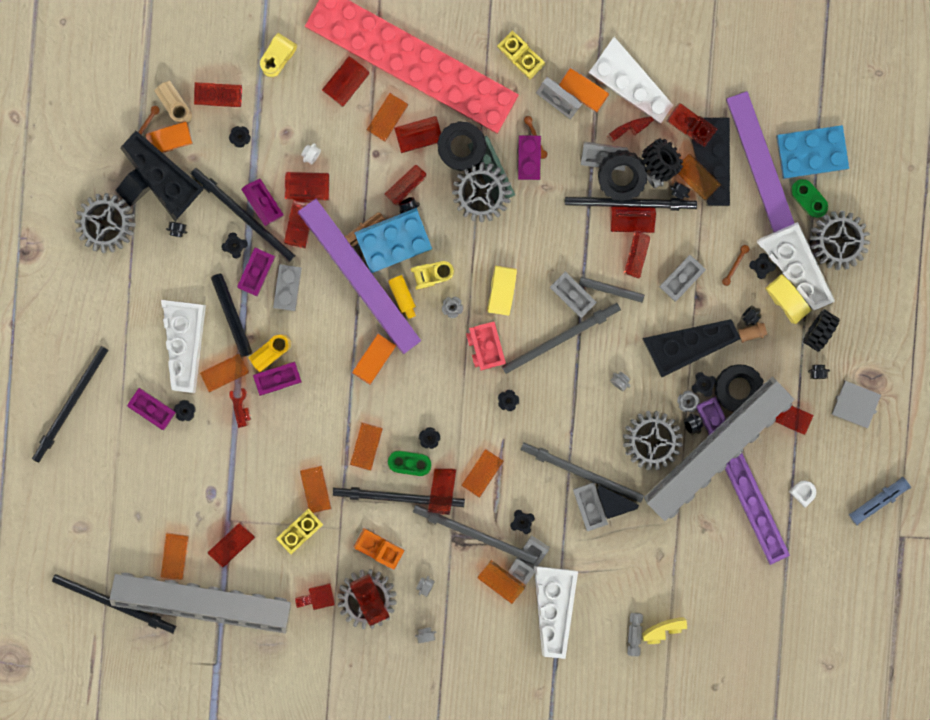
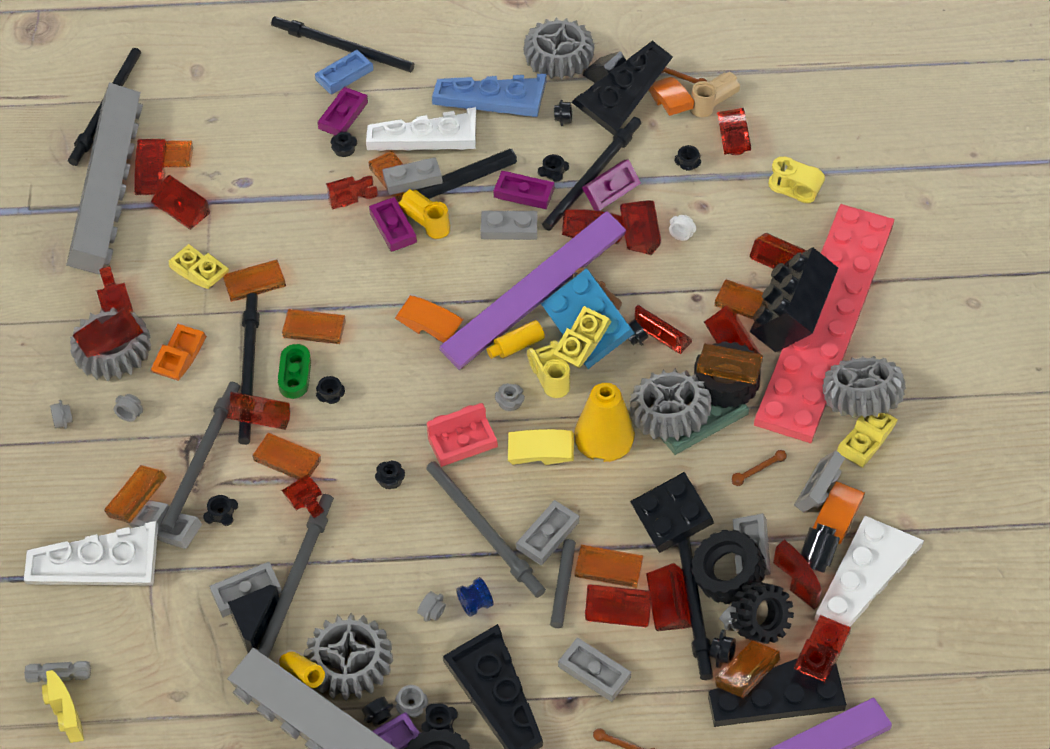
camera: 85 degrees right, 35 degrees down
(105, 404) = (344, 72): none -> medium blue plate
(148, 282) = (502, 96): none -> medium blue wing
(190, 567) = (149, 166): none -> clear red slope
(234, 358) = (412, 176): none -> light grey plate
(406, 83) = (793, 299): none -> black brick
(420, 248) = (583, 337): none -> light yellow slope
(462, 143) = (730, 363): none -> clear orange tile
(474, 58) = (864, 387): none -> light grey gear
(492, 253) = (604, 425): none -> yellow cone
(520, 463) = (304, 494): none -> clear red plate
(529, 157) = (729, 460): magenta plate -> none
(570, 206) = (672, 512): none -> black plate
(602, 256) = (609, 566): none -> clear orange tile
(614, 110) = (820, 547): none -> black brick
(618, 351) = (474, 597): none -> clear blue wheel
(662, 472) = (302, 669): none -> yellow cylinder

